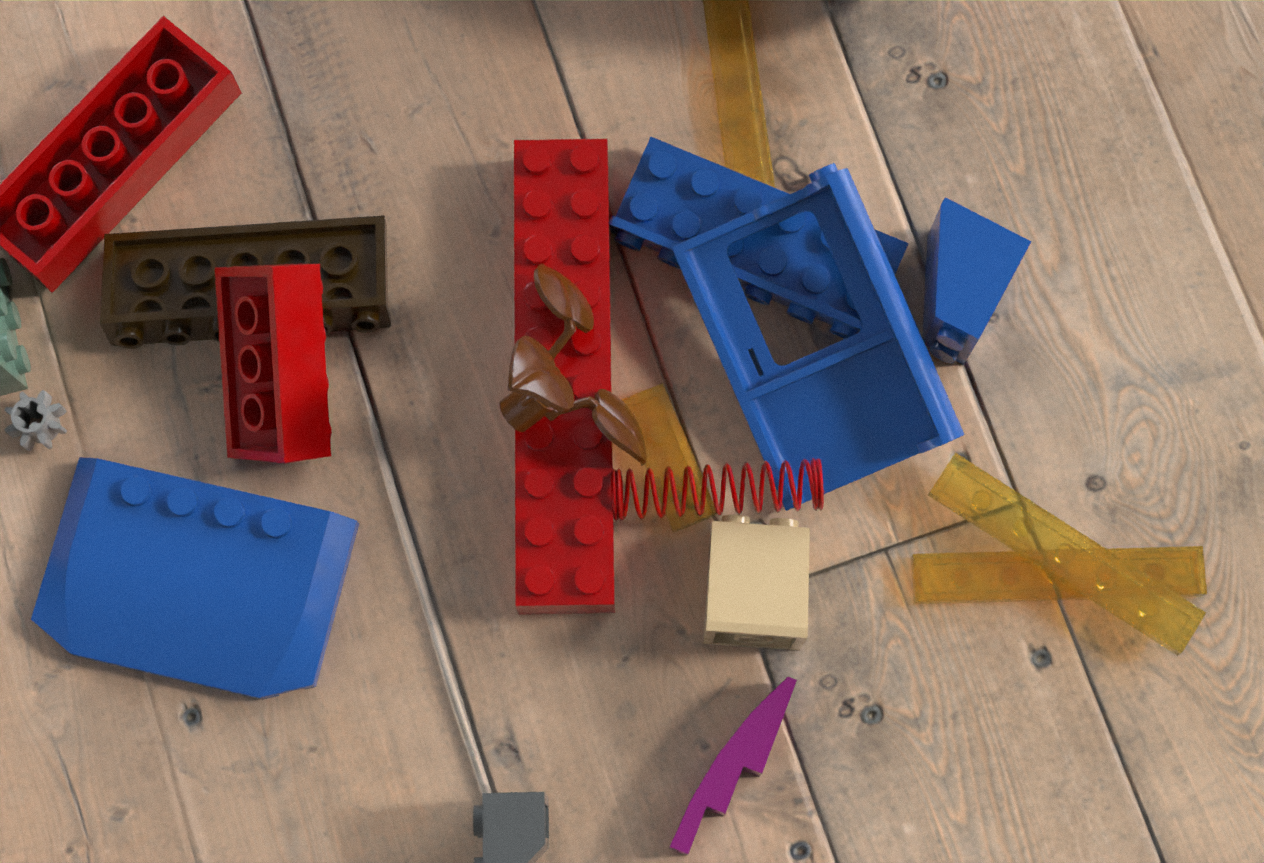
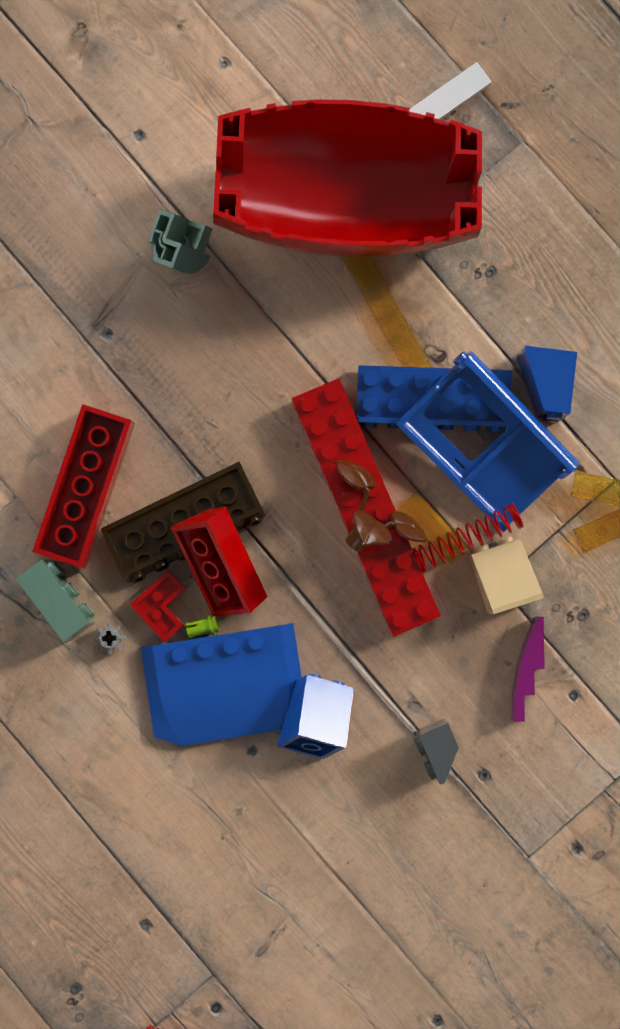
camera: 25 degrees left, 10 degrees up
(135, 394) = (153, 605): none -> red plate
(200, 465) = (203, 627): none -> lime pin
(322, 696) = (317, 717): none -> slope

